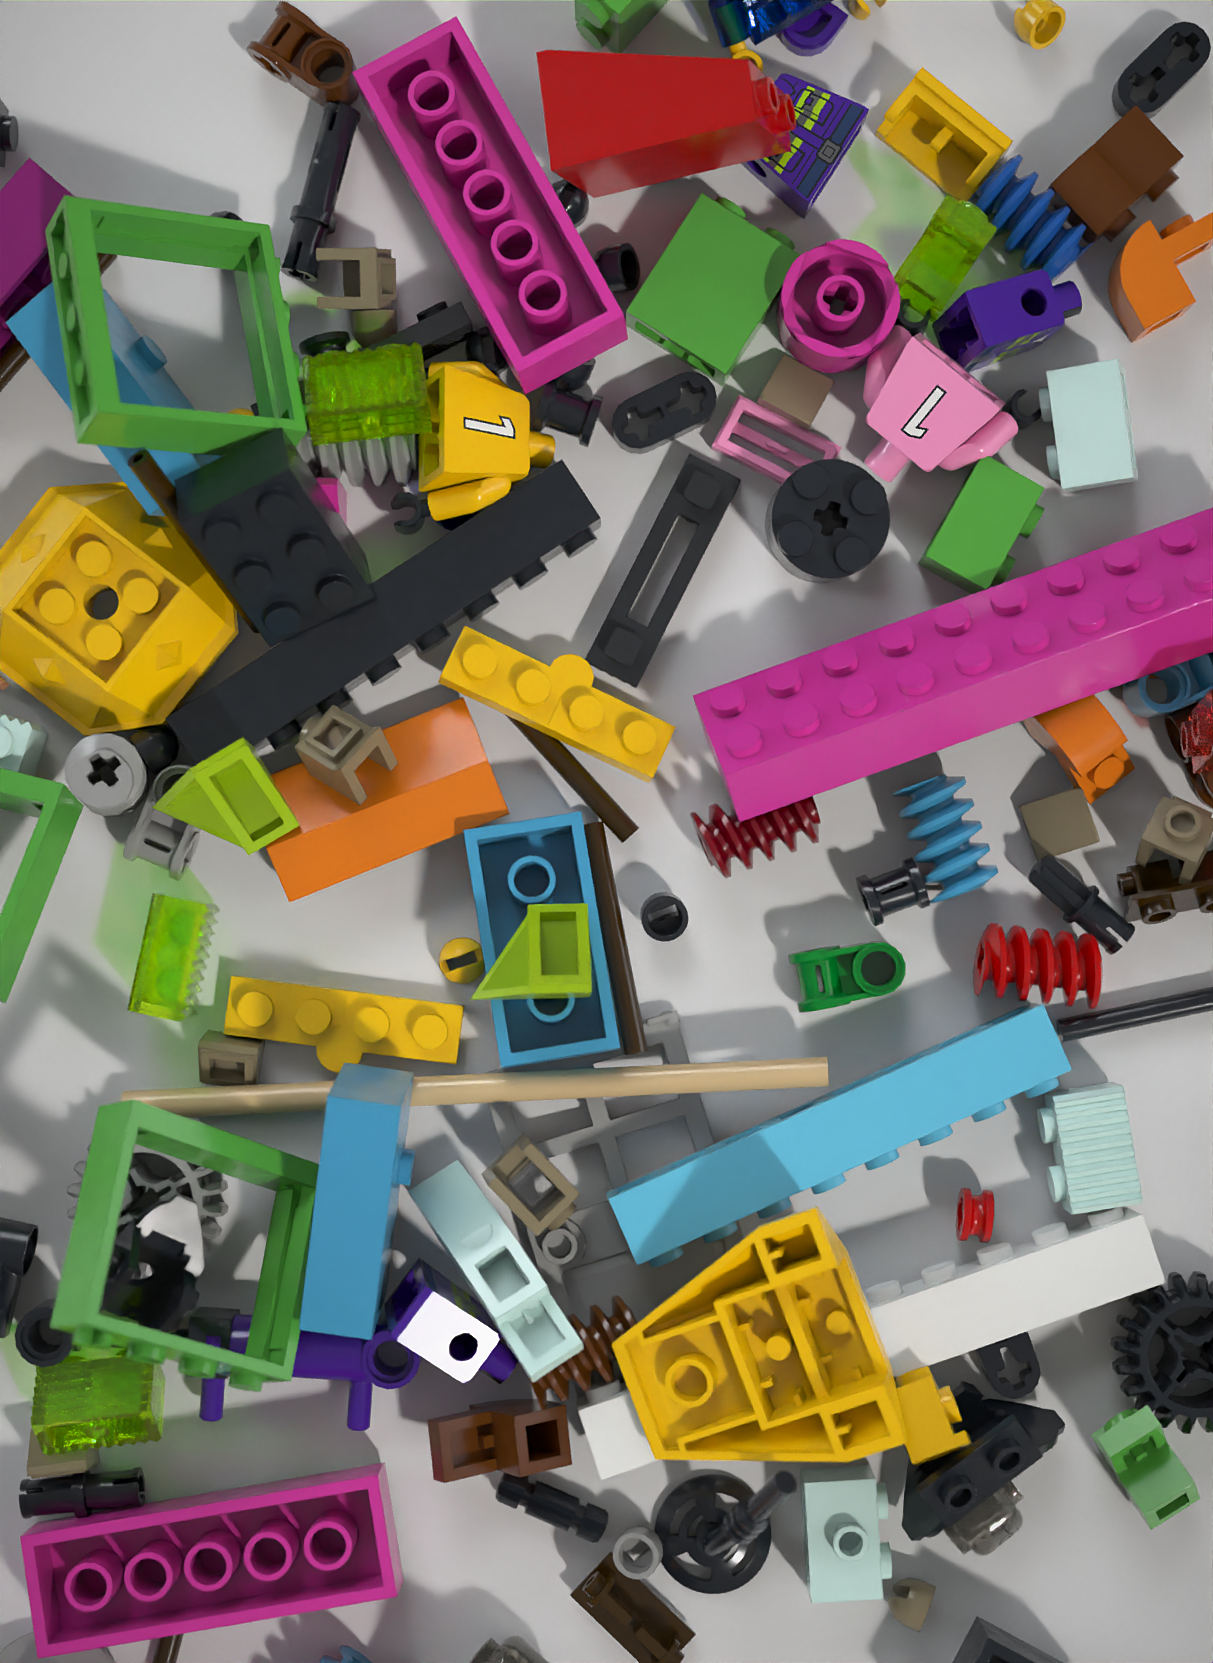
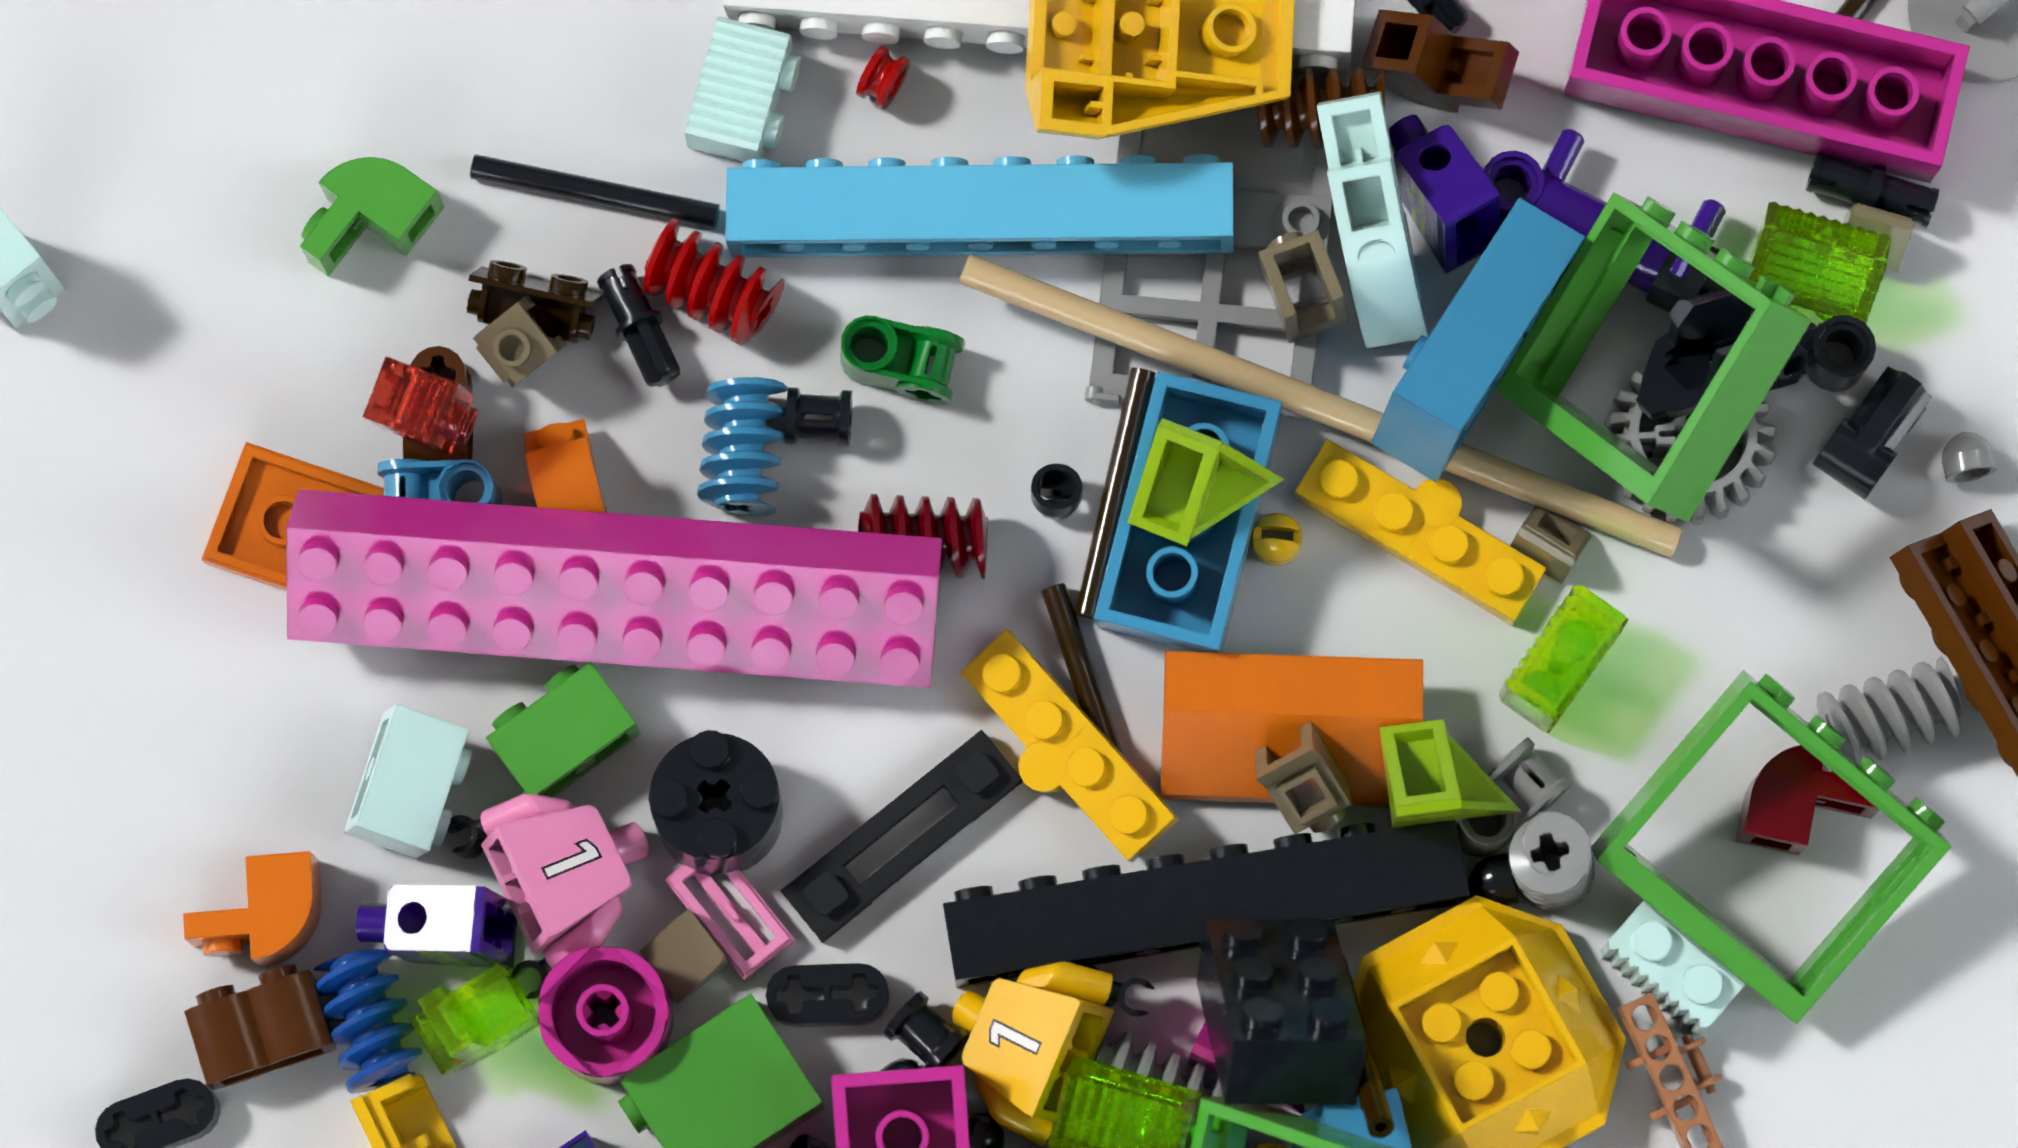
camera: 150 degrees left, 10 degrees down
(1059, 823) = (623, 413): dark tan slope -> none

